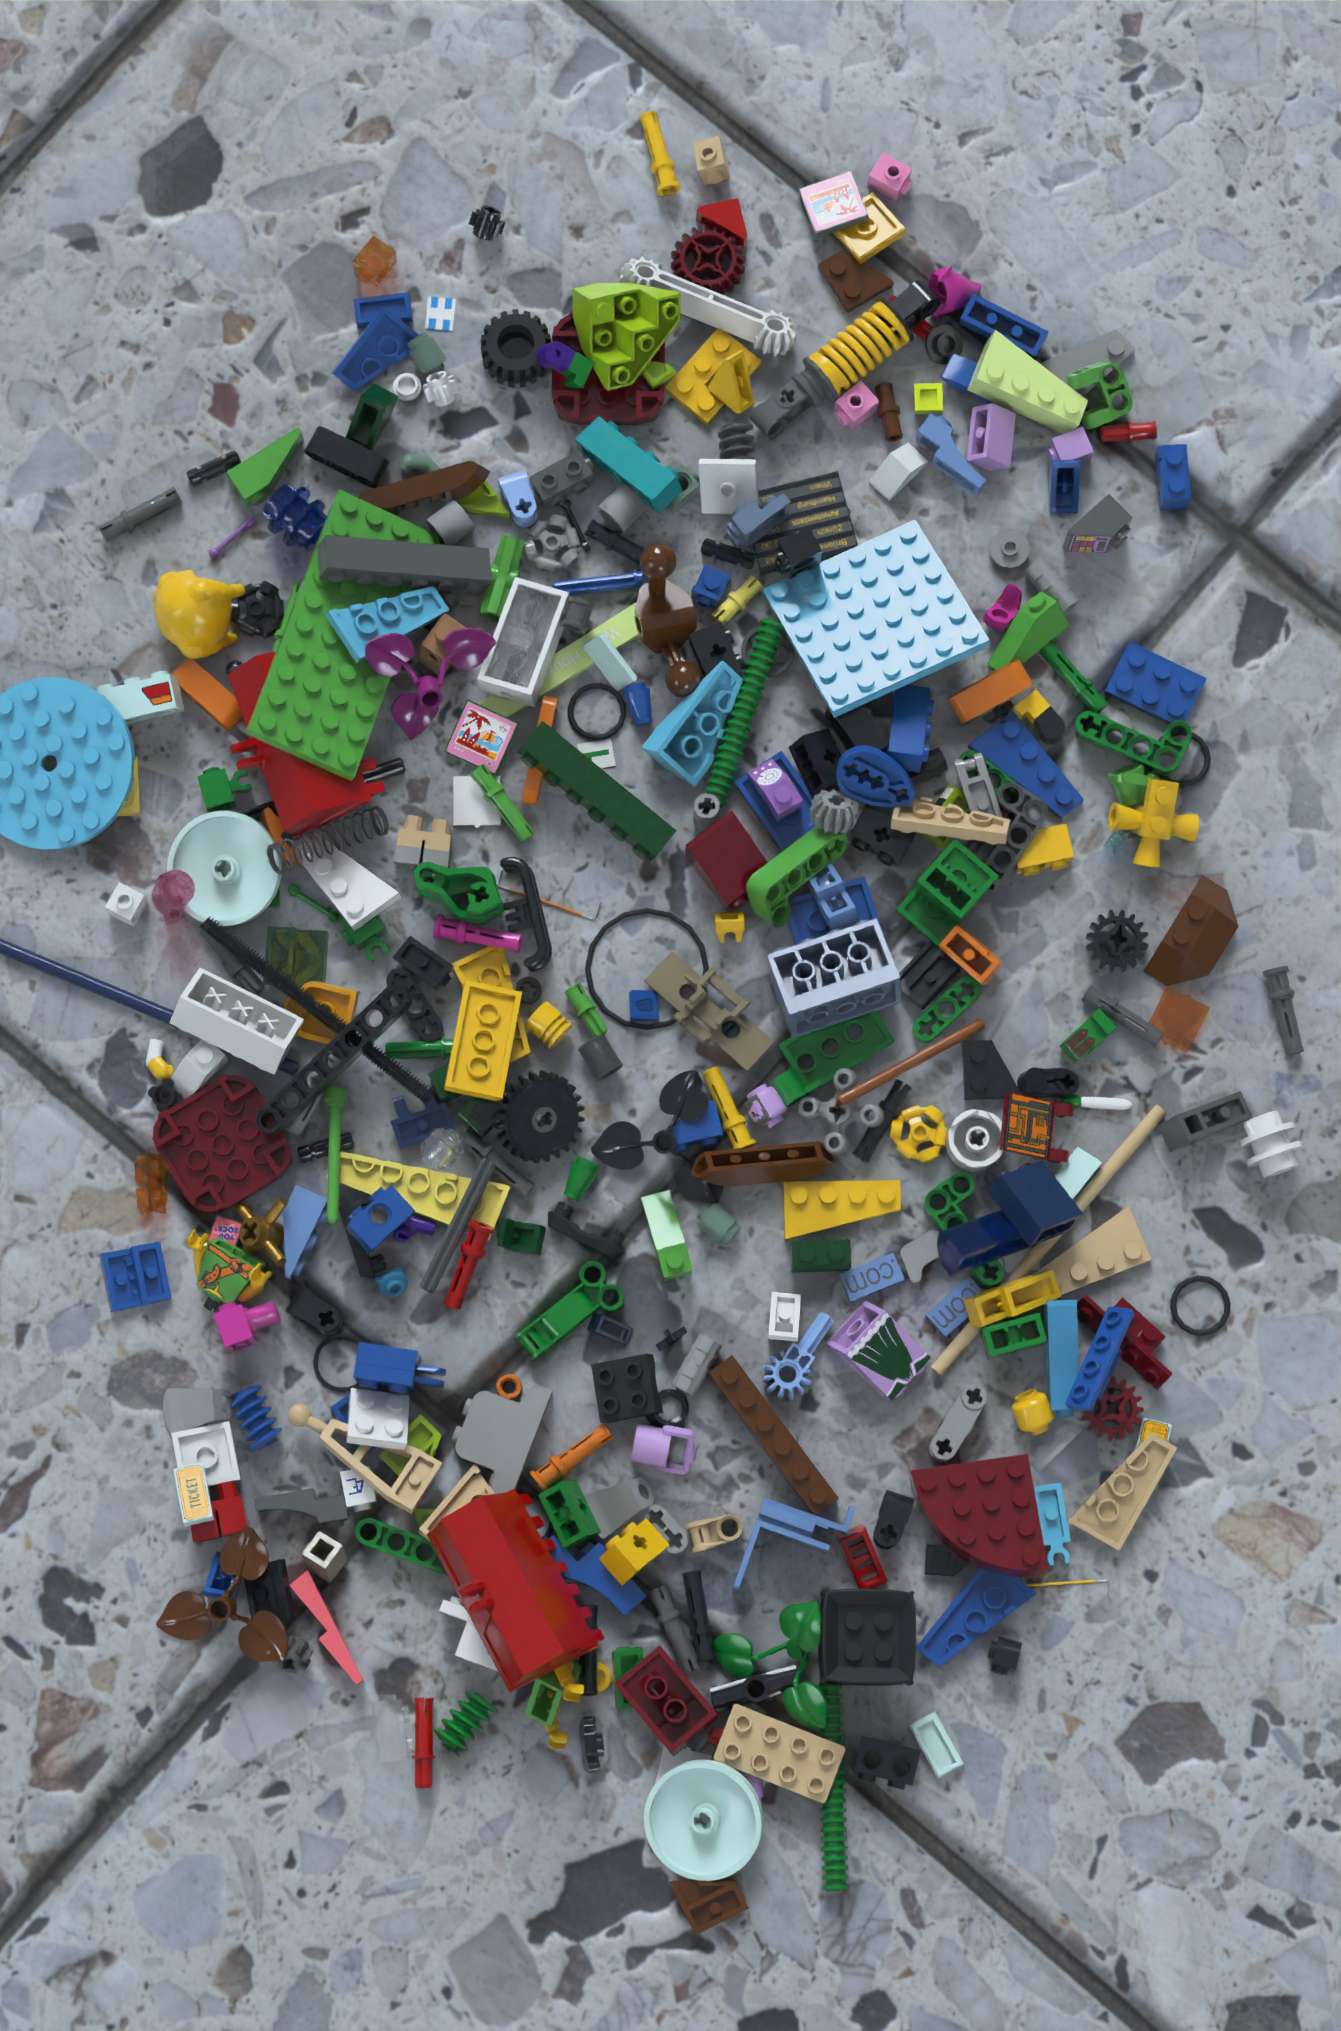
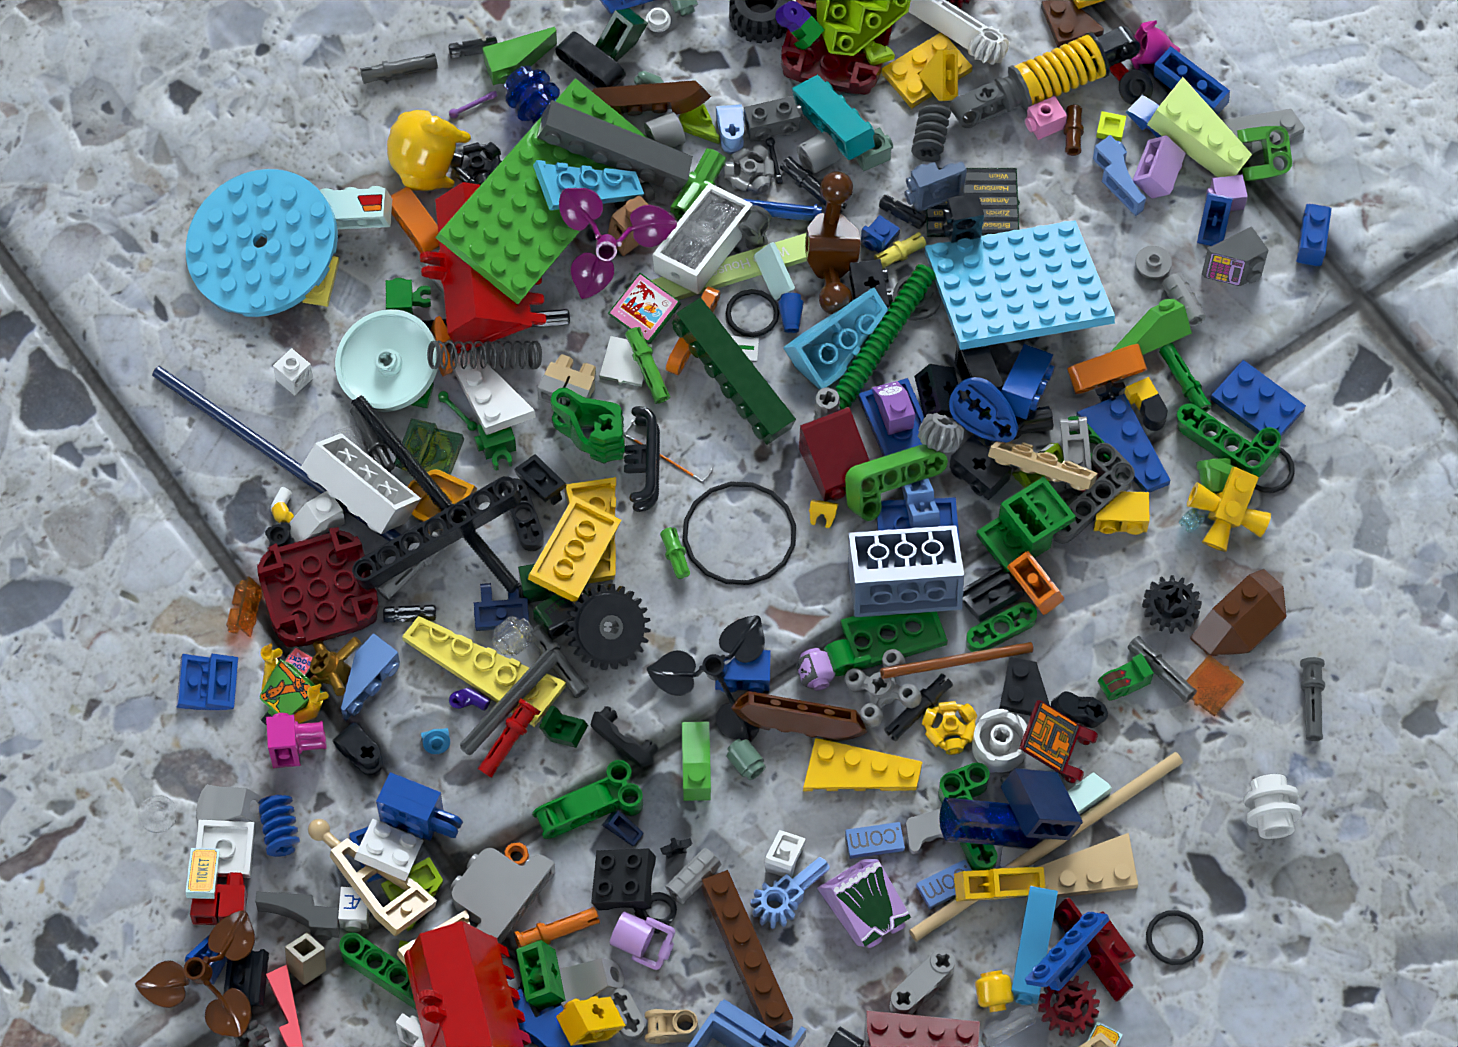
camera: 15 degrees right, 15 degrees down
(172, 894) = (335, 368): clear pink piece -> none
(315, 1361) = (349, 789): black piece -> none
(335, 1099) = (430, 574): bright green piece -> none
(366, 1265) = (414, 673): black piece -> none
(369, 1233) = (430, 689): blue brick -> none
(419, 1049) = (515, 550): green axle -> none
(440, 388) = (686, 26): white gear -> none
(463, 931) = (583, 462): dark pink pin -> none
(533, 983) = (635, 521): black bush -> none
(548, 1025) = (637, 555): yellow piece -> none
(580, 1177) = (631, 690): green cone -> none
(600, 1057) = (677, 593): dark grey piece -> none
(643, 1005) = (727, 561): blue slope -> none
(705, 1020) = (779, 584): dark tan piece -> none
(727, 484) = (914, 147): white plate -> none
(732, 1122) = (782, 675): yellow pin -> none
(820, 1255) = (832, 807): dark green brick -> none
(897, 470) = (1069, 178): white slope -> none
(1004, 609) = (1135, 310): dark pink hair -> none
(1013, 1336) = (992, 918): green brick -> none
(1097, 1102) = (1122, 739): white piece -> none
(1128, 432) = (1283, 192): red axle -> none
(1204, 1121) = (1213, 775): dark grey slope -> none

